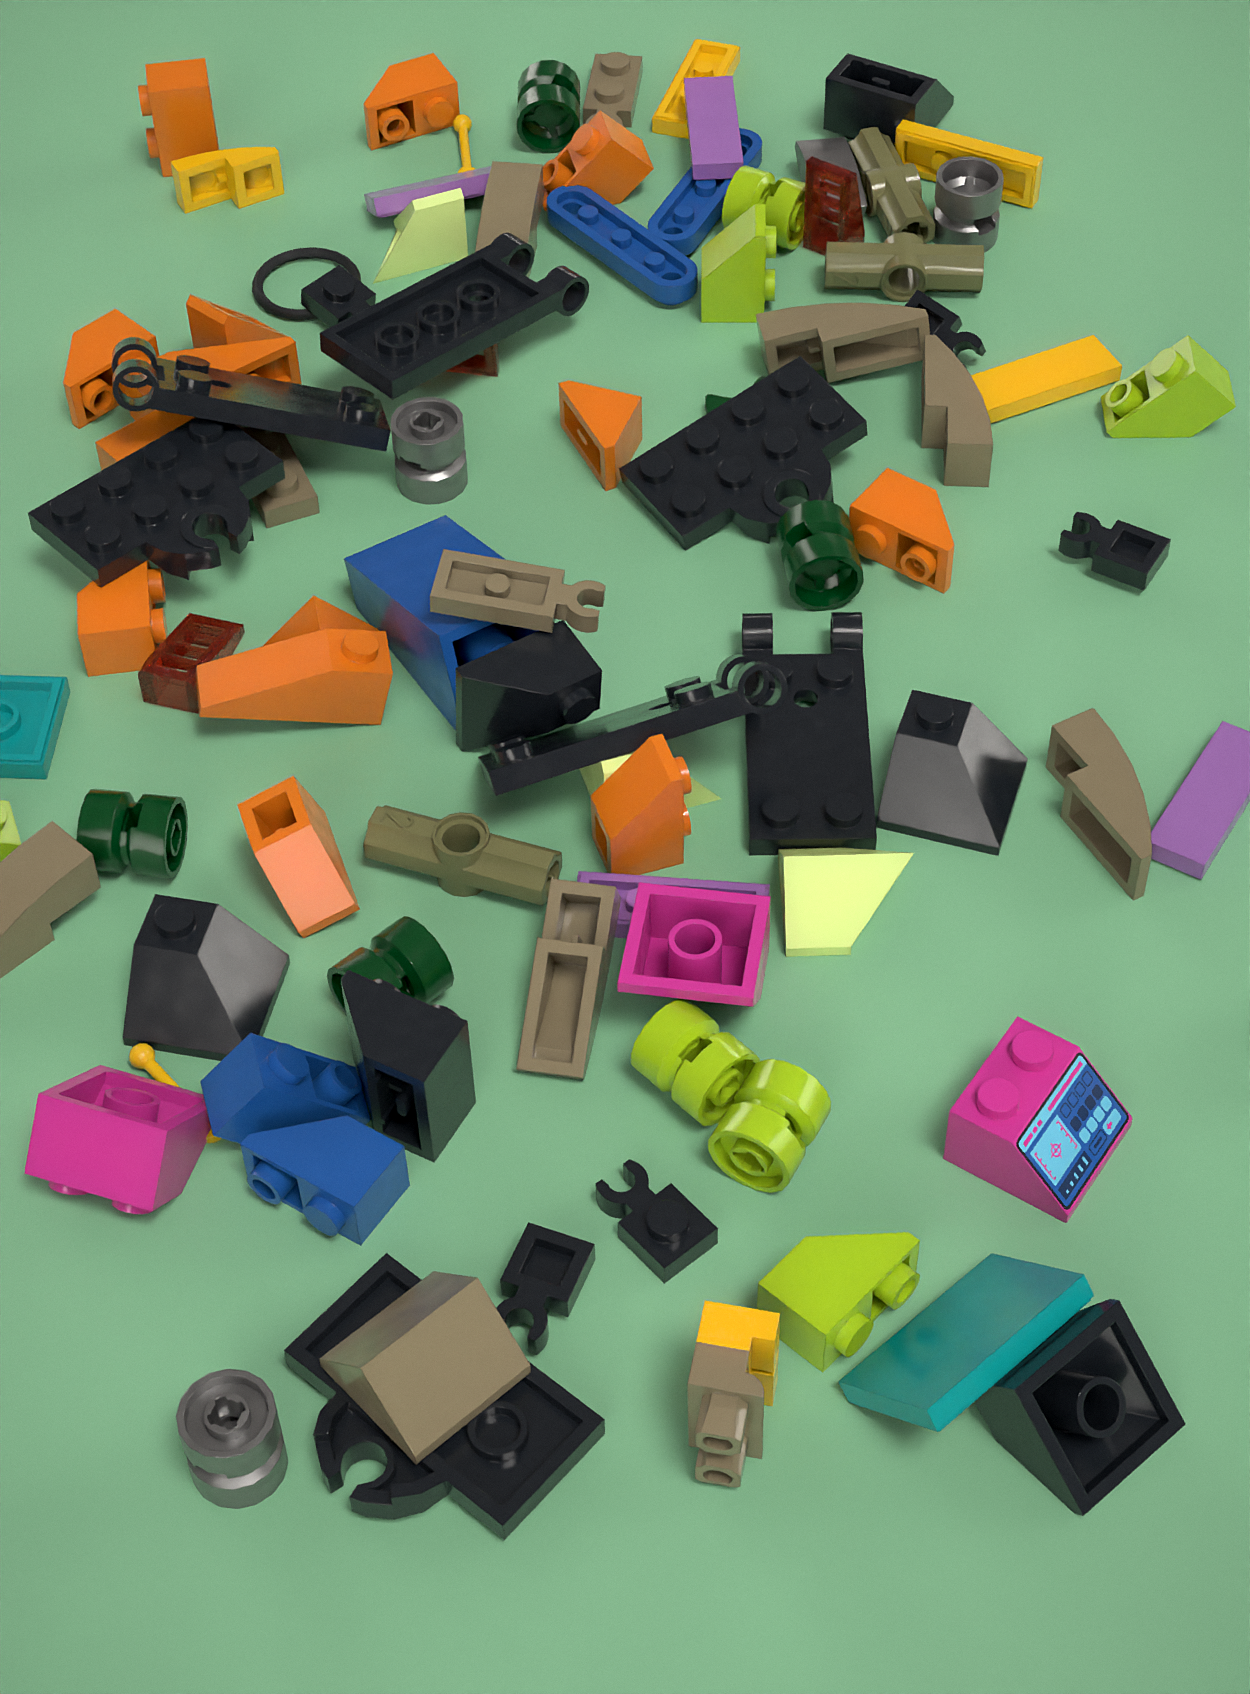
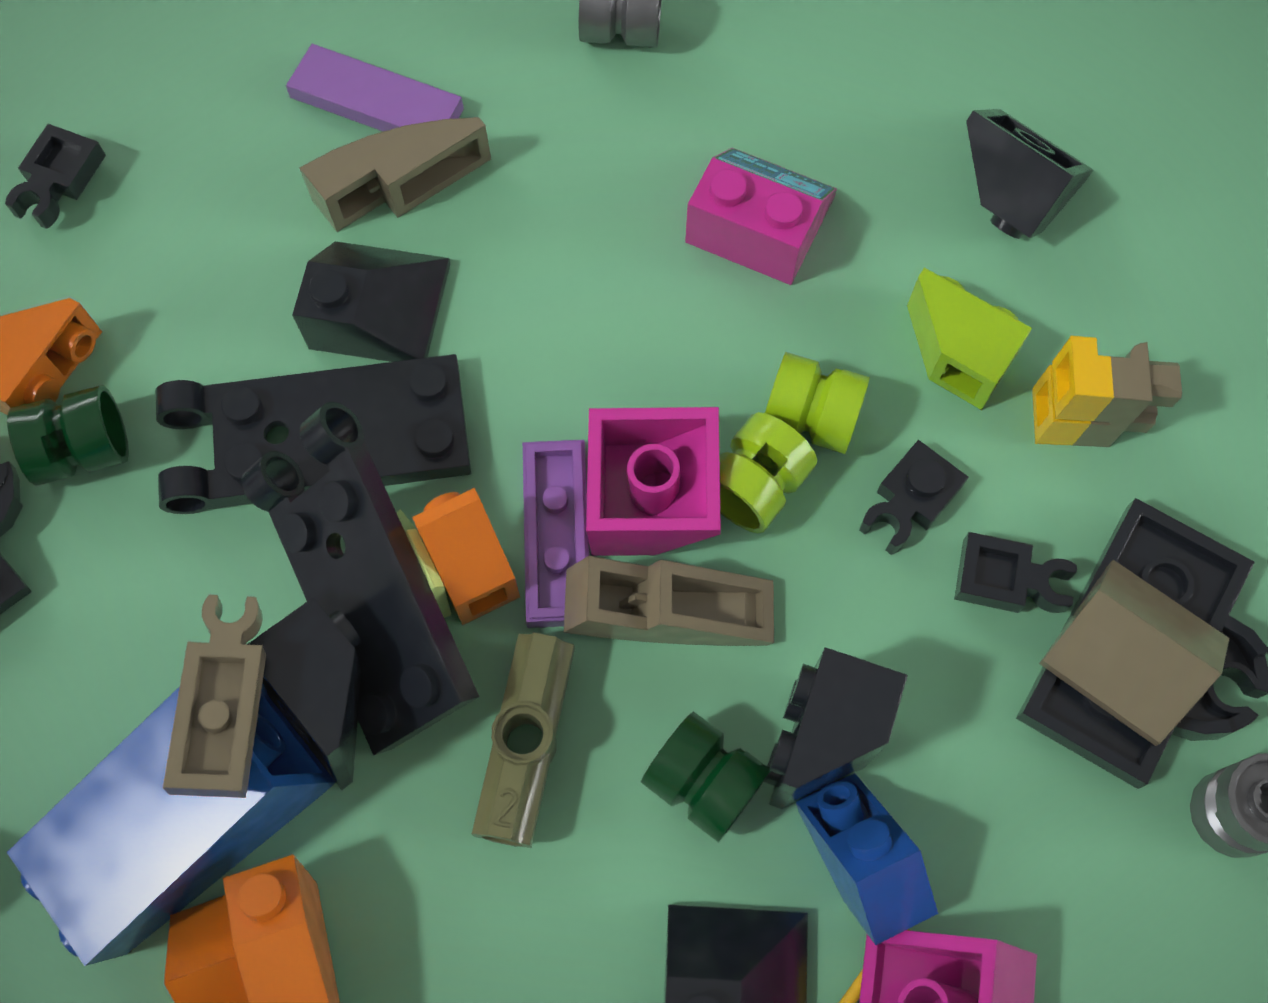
camera: 100 degrees left, 20 degrees up
(299, 855) = (559, 912): orange slope -> none
(330, 1172) = (943, 787): blue slope -> none
(832, 895) = (522, 385): yellowish green slope -> none
(966, 1341) = (998, 234): teal tile -> none

